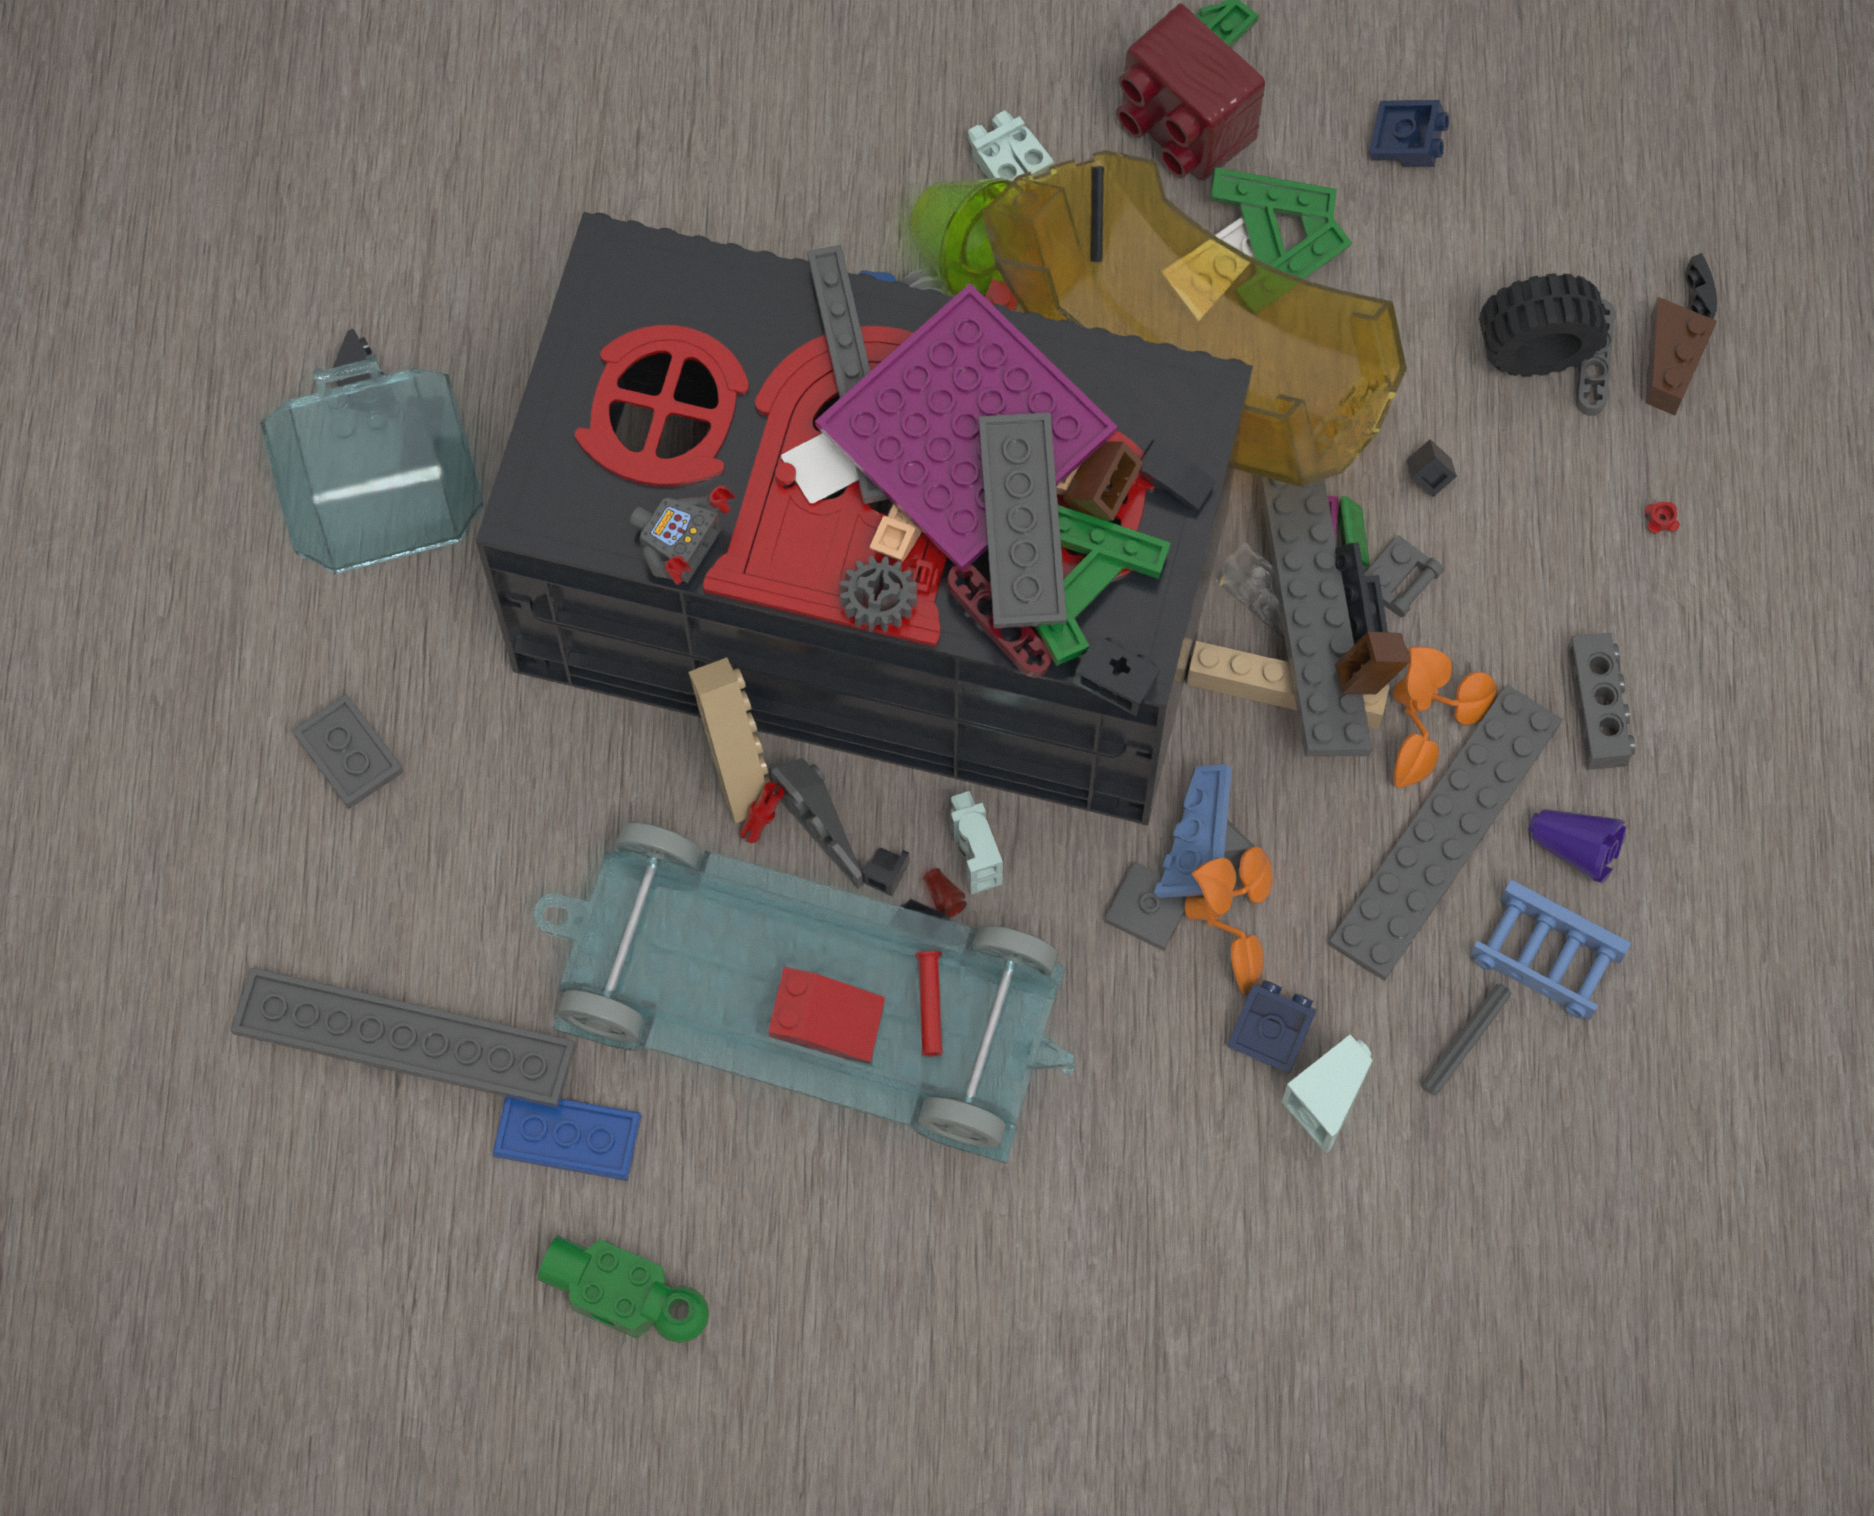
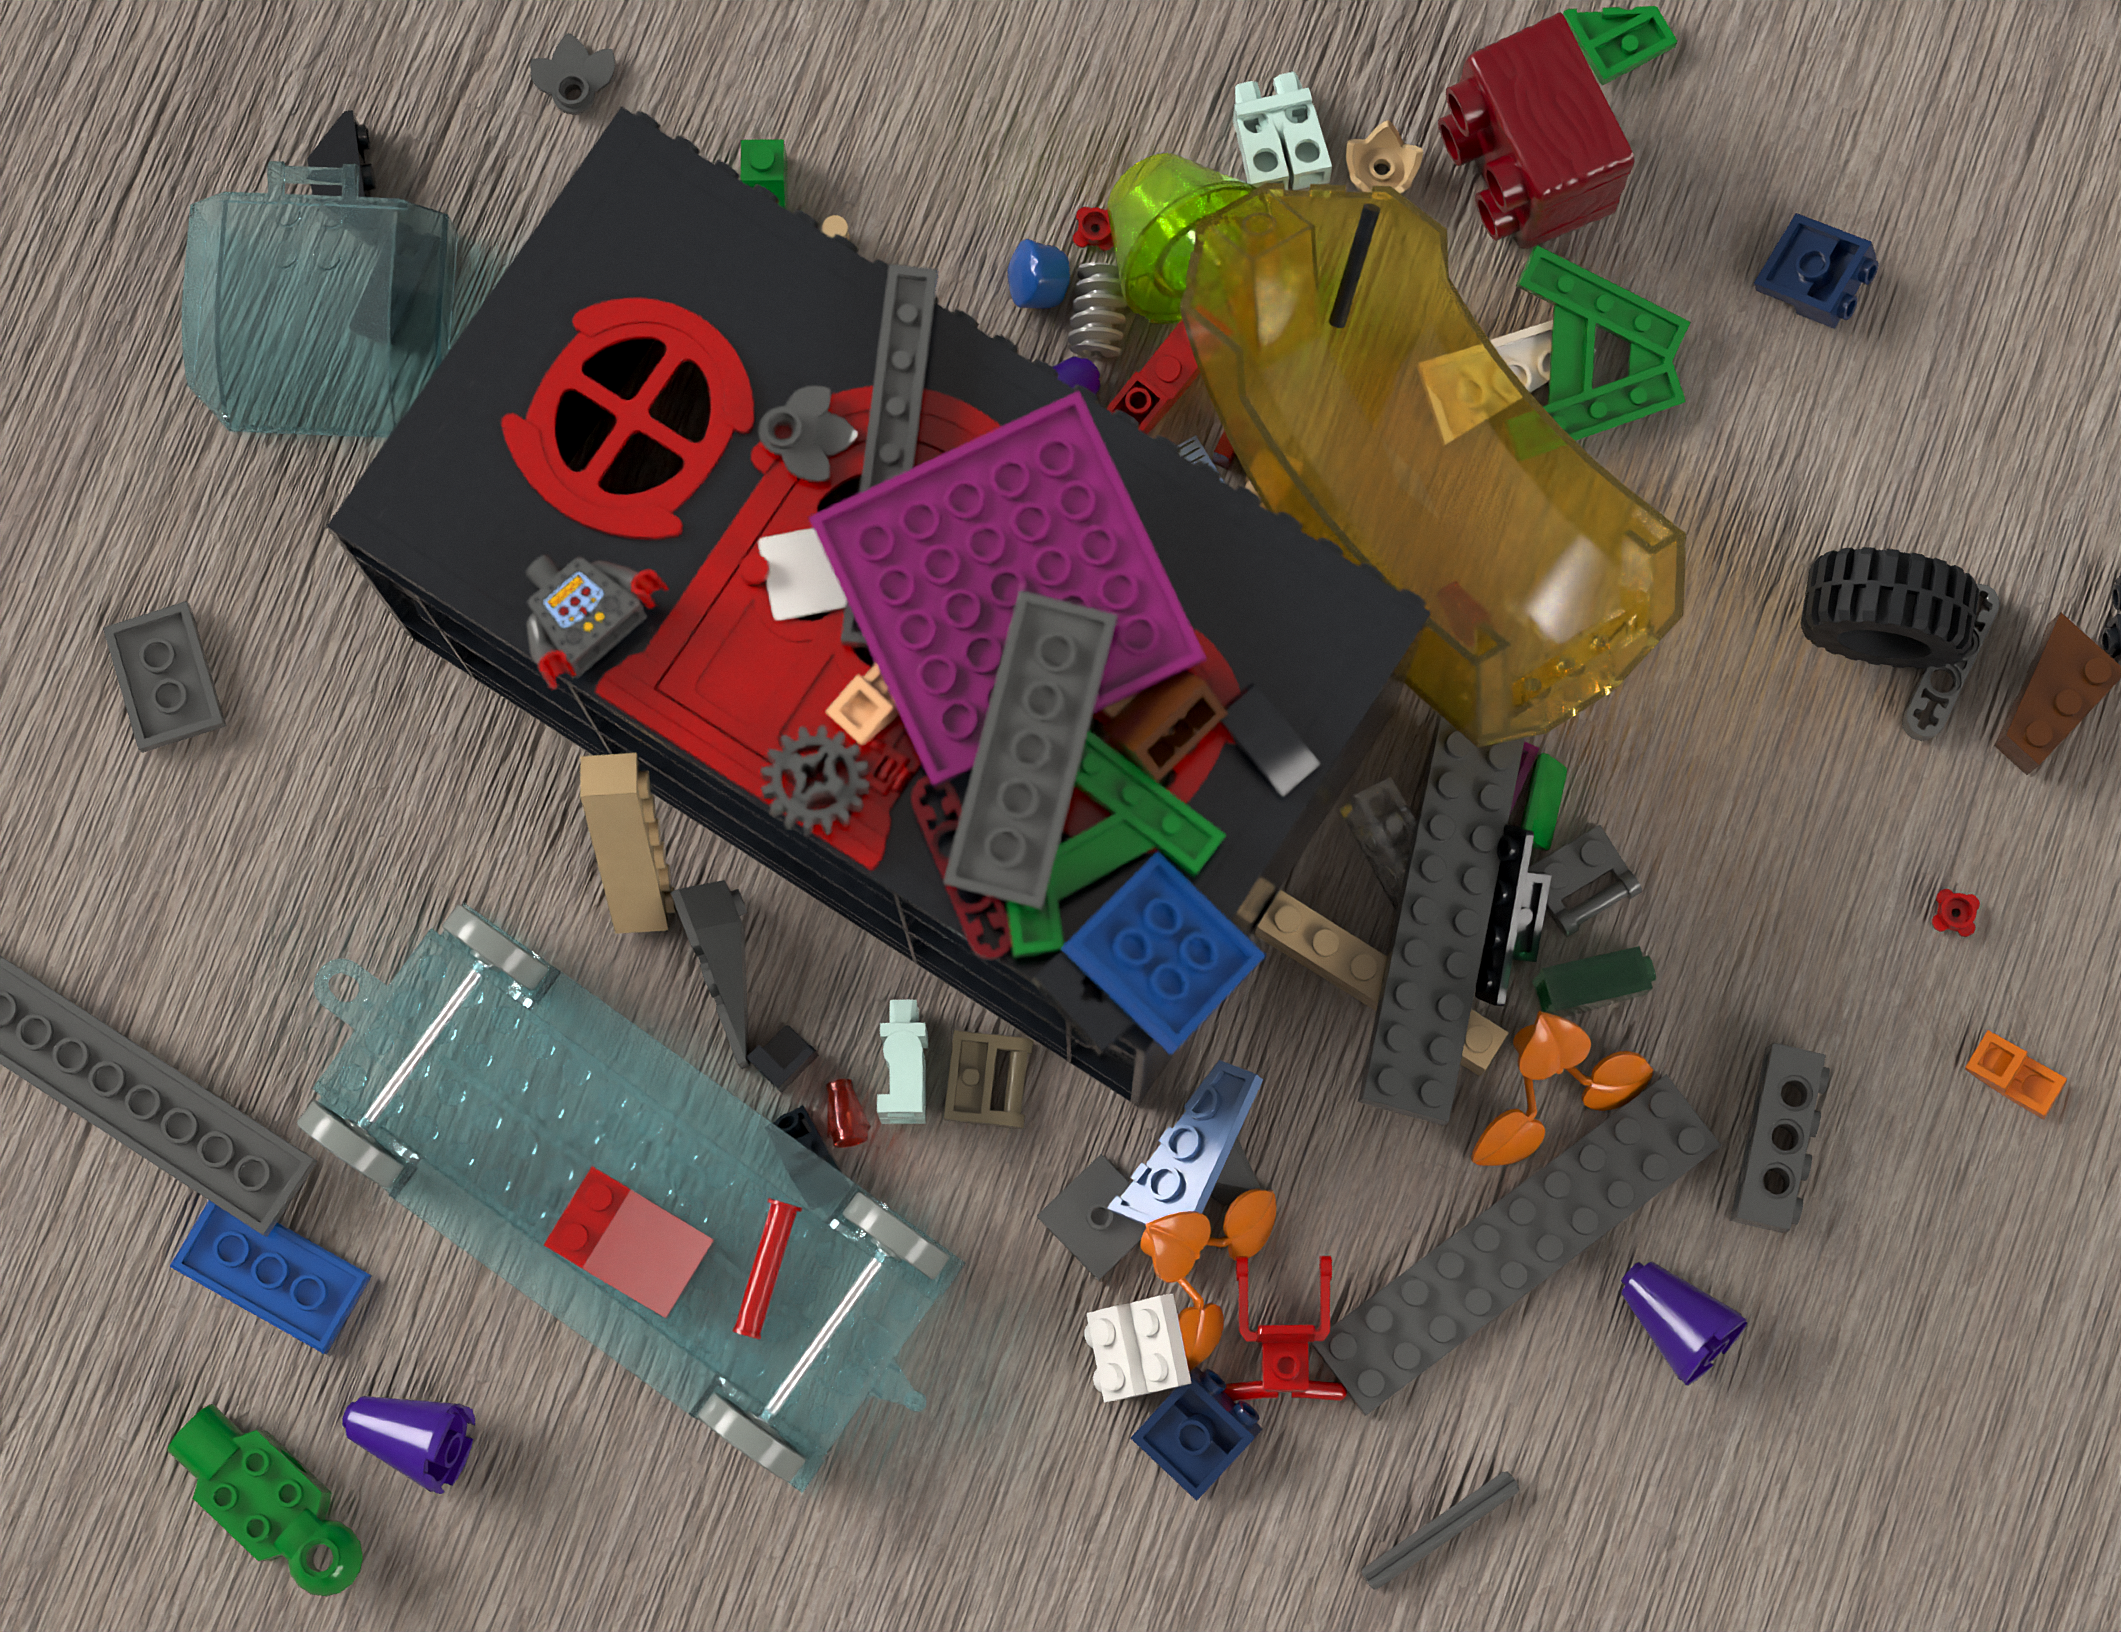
camera: 20 degrees right, 10 degrees up
(499, 260) = (573, 70): none -> dark grey plate
(713, 1210) = (413, 1436): none -> dark purple cone
(761, 812) = (648, 935): red pin -> none
(793, 374) = (814, 434): none -> dark grey plate
(903, 246) = (1088, 218): none -> red plate
(1026, 842) = (973, 1078): none -> dark tan plate
(1085, 142) = (1387, 148): none -> tan piece
(1157, 628) = (1163, 953): none -> blue plate
(1210, 980) = (1137, 1348): none -> white plate
(1312, 944) = (1285, 1347): none -> red piece
(1327, 1090) = (1237, 1547): light aqua slope -> none
(1372, 663) = (1486, 1012): reddish brown brick -> none
(1431, 468) = (1676, 747): black panel -> none
(1441, 630) = (1594, 982): none -> clear green slope
(1548, 917) = (1633, 1441): medium blue fence -> none
(1743, 611) = (2015, 1075): none -> orange slope

